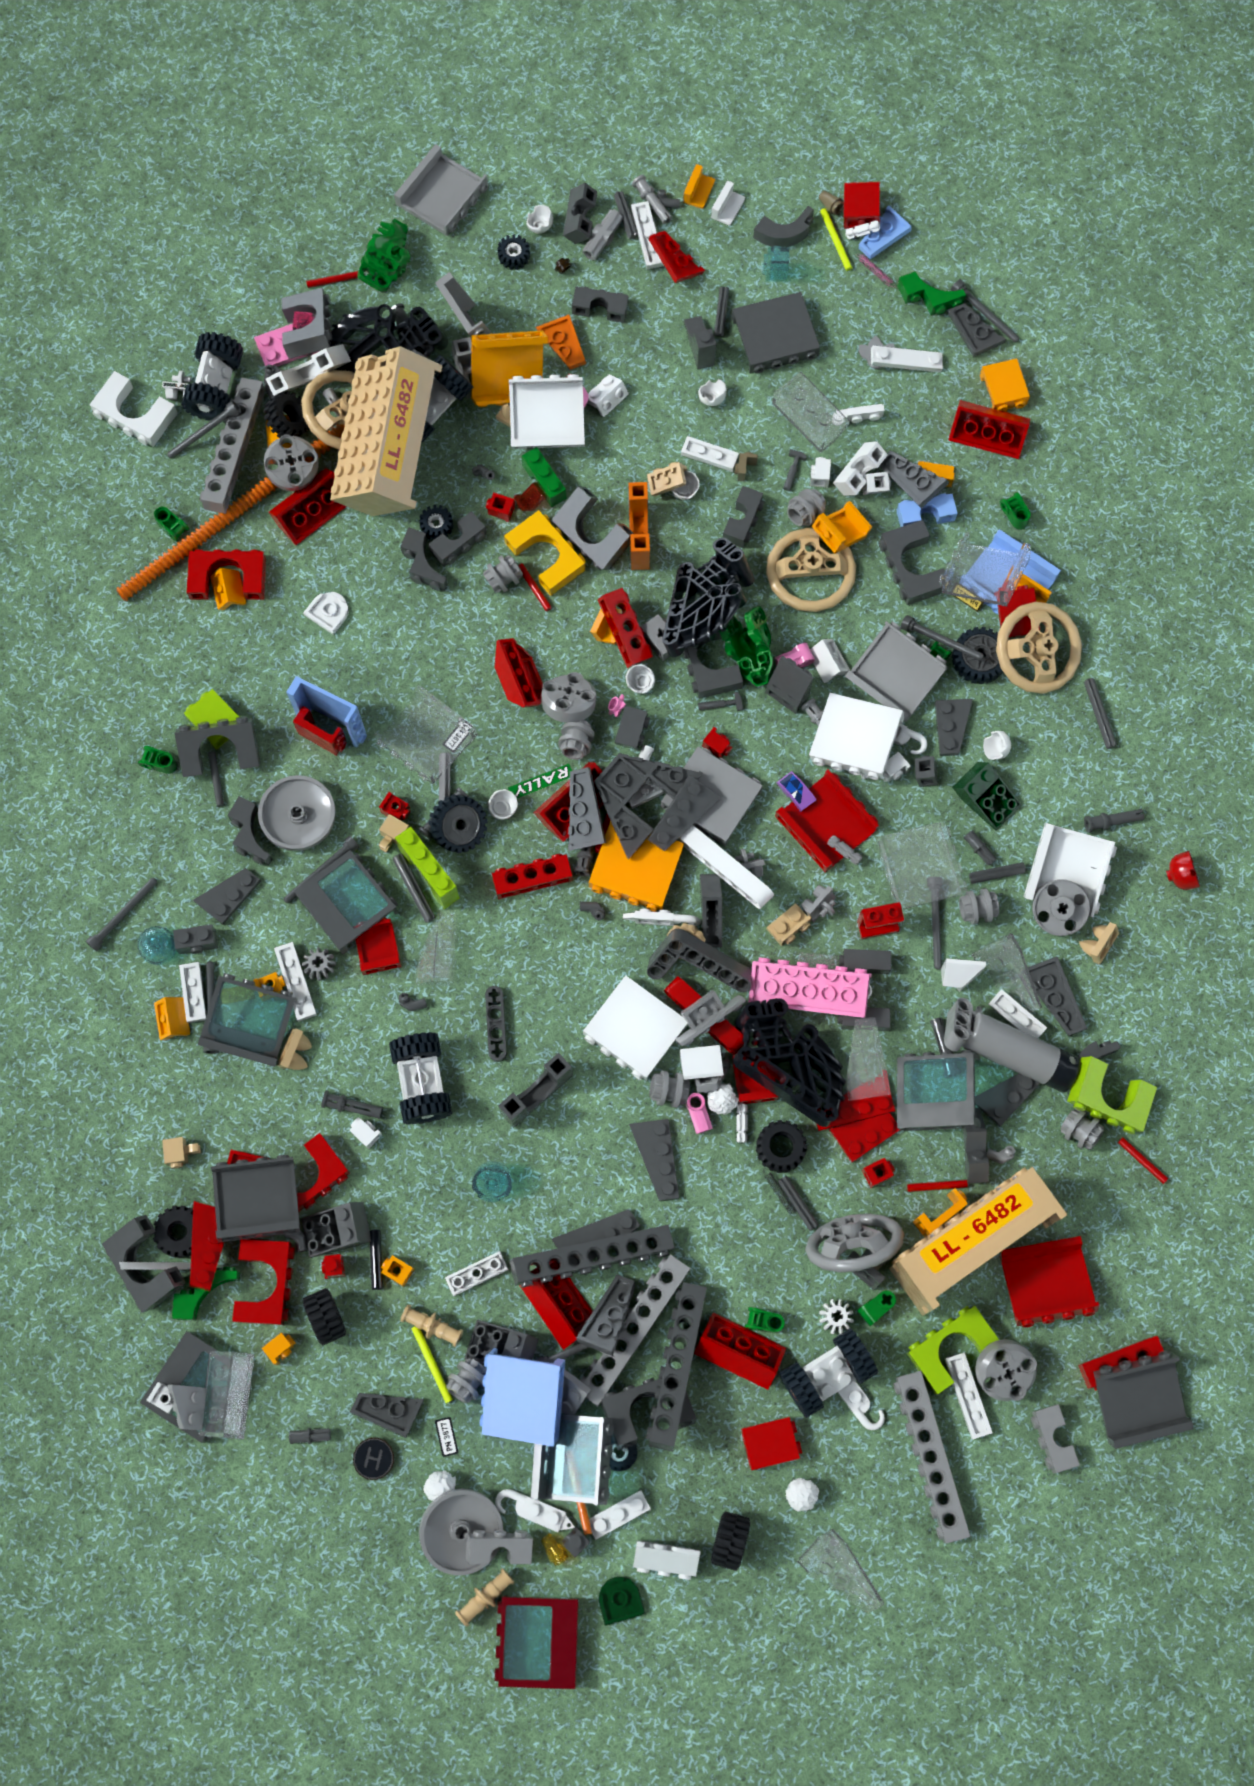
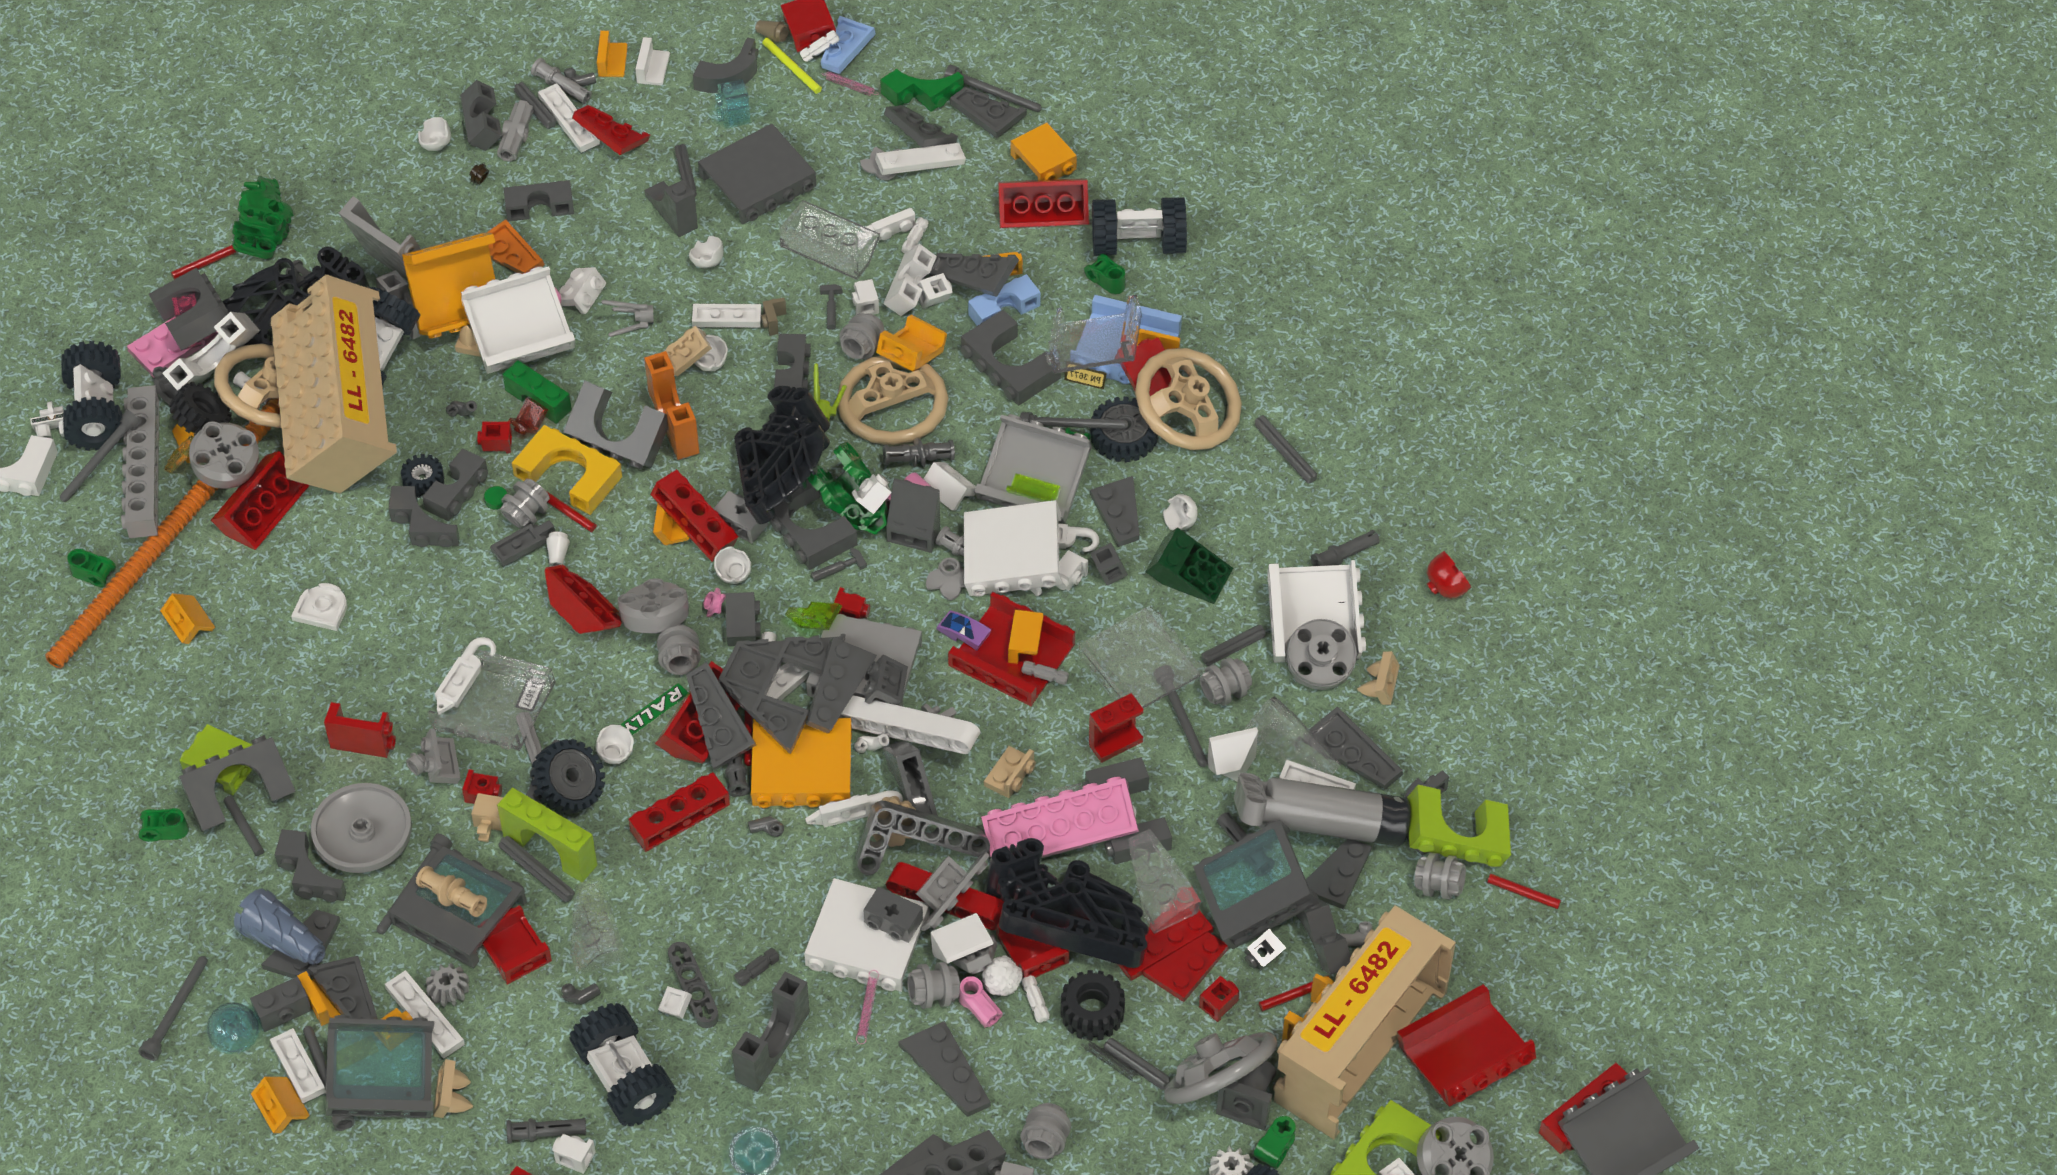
camera: 20 degrees left, 20 degrees down
(204, 563) = (150, 596): red arch -> none
(209, 877) = (277, 928): none -> sand blue cone
(228, 942) = (318, 1000): none -> light orange panel
(246, 941) = (345, 986): none -> dark grey wing
(261, 447) = (179, 455): none -> clear yellow tile
(314, 698) = (364, 692): light blue panel -> none
(341, 895) = (451, 891): none -> tan piece
(355, 770) = (416, 763): none -> light grey plate
(373, 773) = (440, 758): none -> light grey bracket
(408, 711) = (461, 676): none -> white plate
(440, 191) = (303, 139): light grey panel -> none
(477, 1035) = (675, 1002): none -> white tile
(484, 557) = (493, 497): none -> green tile
(491, 605) = (521, 542): none -> dark grey hinge
(512, 244) = (419, 183): black bush -> none
(515, 619) = (557, 547): none -> white cone
(546, 1025) = (756, 967): none -> dark grey axle
(612, 1090) = (868, 1005): none -> bright pink piece
(646, 432) = (642, 312): none -> light grey plant
(654, 1014) = (893, 915): none -> dark grey brick
(688, 744) = (816, 616): none -> clear neon green panel
(689, 863) = (871, 743): none -> white arm
(708, 1241) = (1045, 1131): none -> light grey piece
(719, 823) = (886, 680): none -> dark grey bracket
(755, 561) = (824, 404): none -> lime plant
(763, 659) = (872, 492): none -> white brick
(799, 745) = (947, 581): none -> light grey plate
(814, 624) = (918, 451): none -> dark grey piece
(822, 905) = (1041, 736): light grey hips -> none
(840, 814) = (1024, 634): none -> light orange panel
(878, 427) = (915, 234): none -> white axle
(891, 689) = (1034, 488): none -> clear neon green panel
(915, 333) = (914, 126): none -> dark grey wing
(932, 1144) = (1268, 943): none -> brick
(980, 848) = (1202, 624): dark grey axle -> none
(1081, 483) = (1150, 223): none -> black plate

